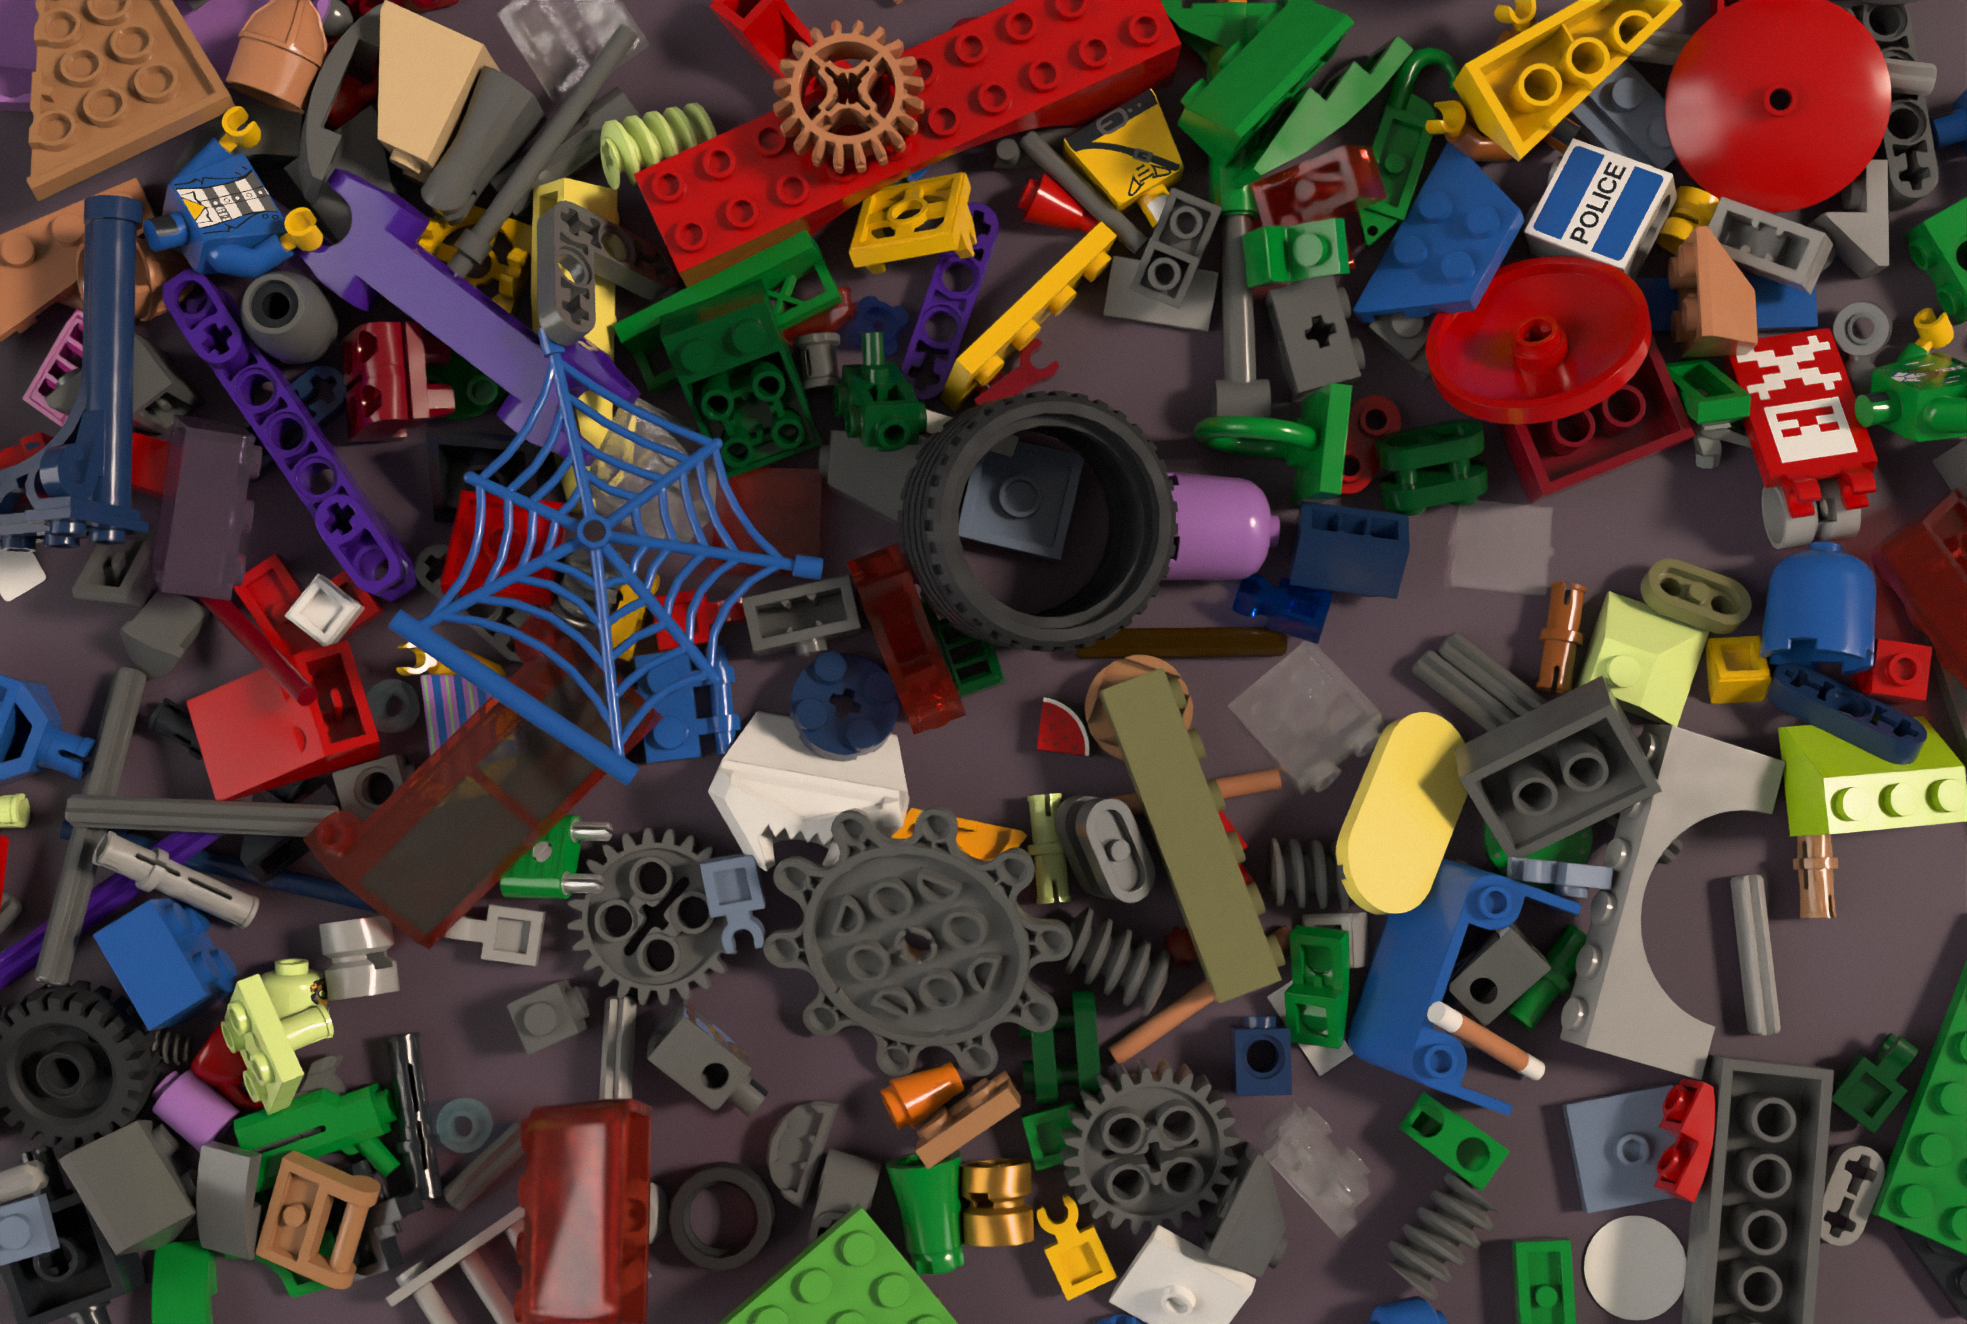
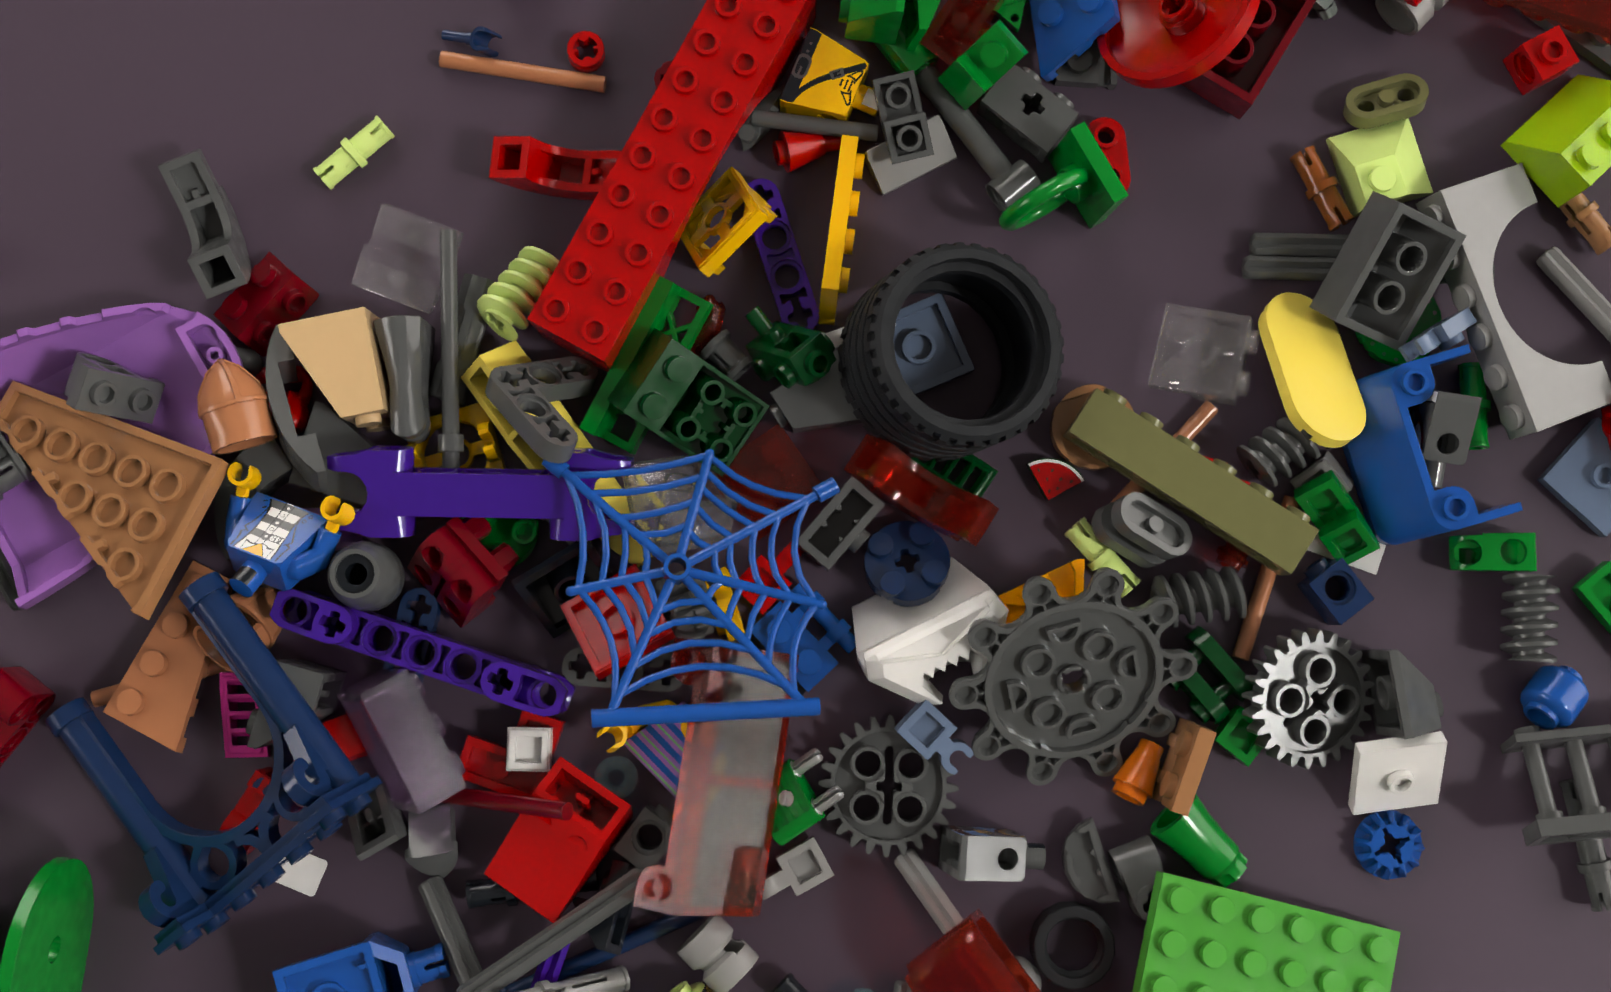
camera: 40 degrees left, 0 degrees up
(549, 1015) = (868, 900): dark grey brick -> none
(873, 311) = (735, 299): clear blue plate -> none
(876, 61) = (614, 163): nougat gear -> none
(997, 1202) = (1243, 809): pearl gold wheel -> none
(1018, 380) = (864, 274): dark red plate -> none
(1077, 1254) = (1311, 799): yellow plate -> none
(1189, 643) = (1104, 354): dark brown axle -> none
(1221, 528) = (1068, 270): medium lavender cylinder -> none
(1289, 607) = (1139, 291): clear blue plate -> none
(1317, 1170) = (1424, 633): clear plate -> none
(1349, 550) = (1152, 229): dark blue brick -> none
(1432, 466) = (1163, 138): dark green brick -> none
(1485, 1041) = (1468, 474): bar -> none
(1502, 547) = (1240, 159): clear piece -> none
(1736, 670) = (1443, 129): yellow slope -> none
(1821, 610) = (1472, 52): blue cylinder -> none
(1872, 724) = (1517, 107): dark blue beam -> none

